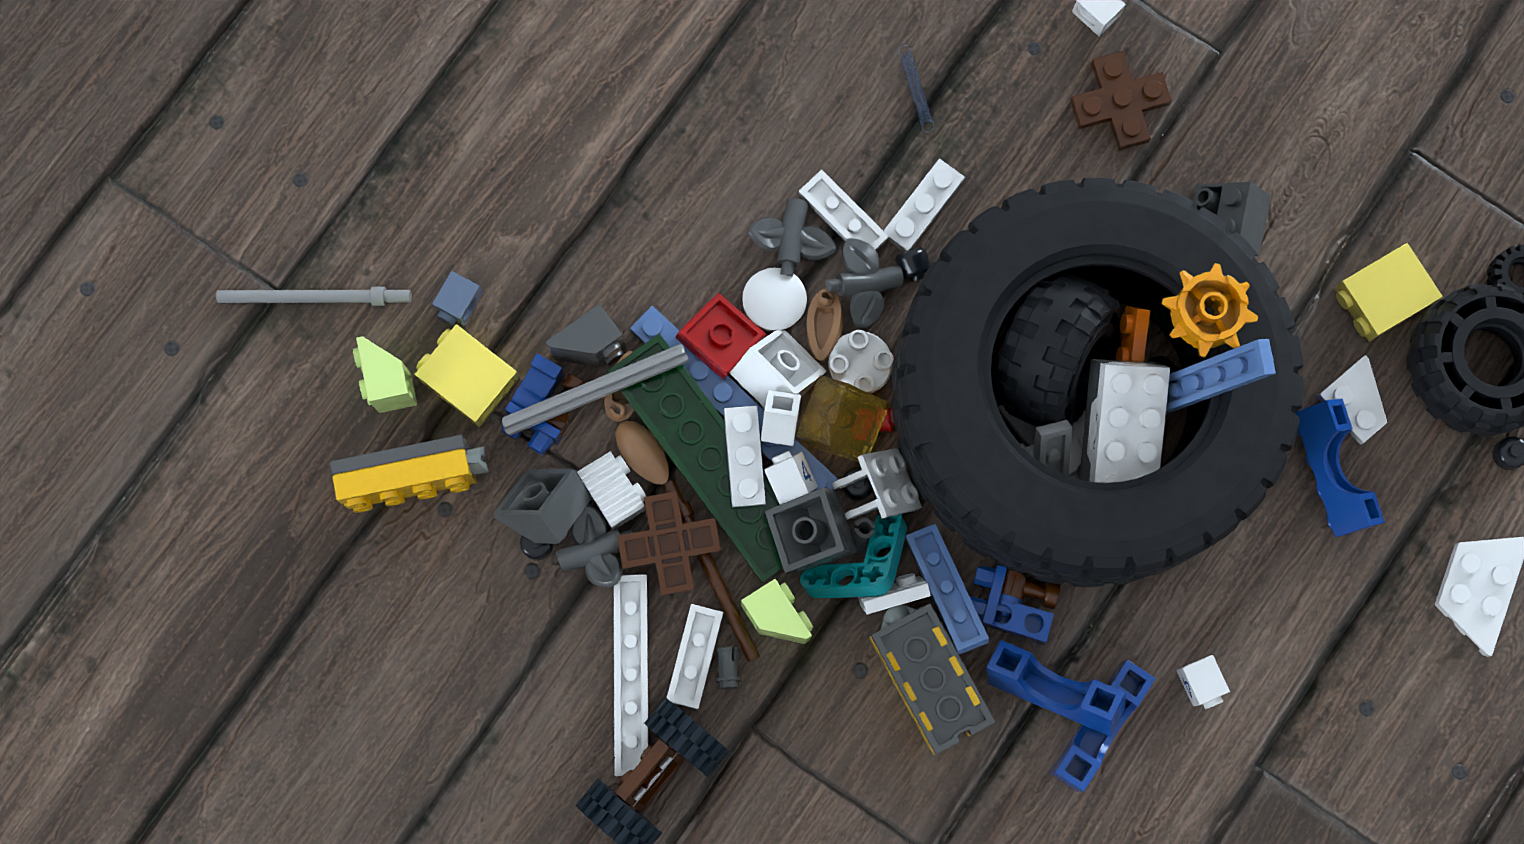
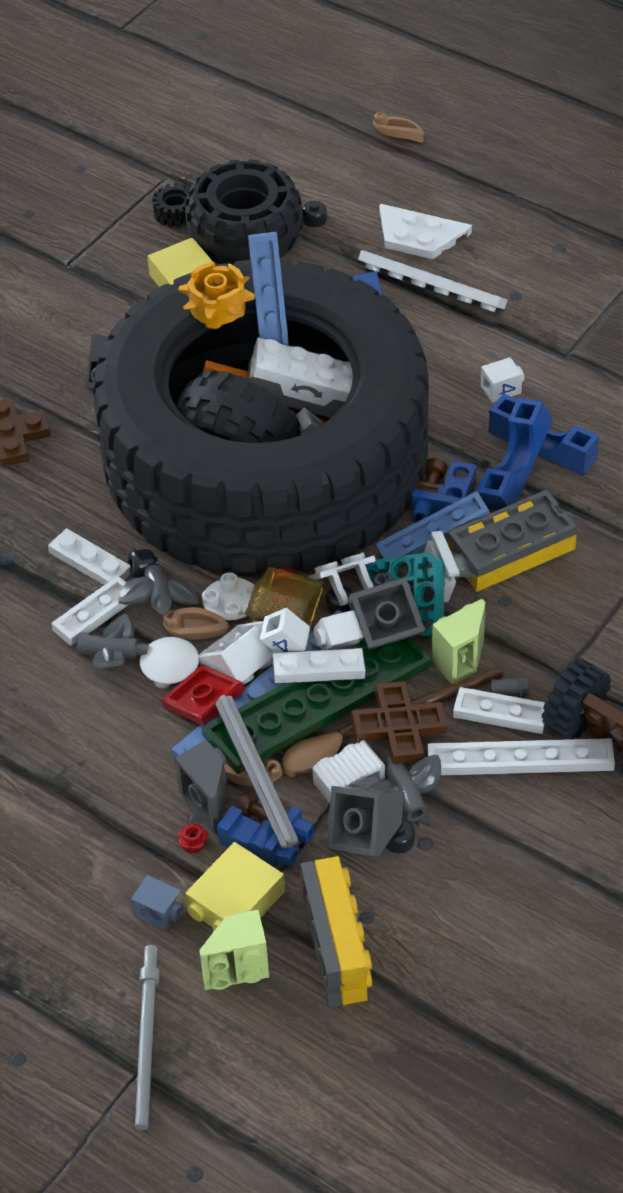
camera: 85 degrees left, 30 degrees down
(534, 326) = (192, 844): none -> red plate
(1382, 601) = (441, 284): none -> white plate

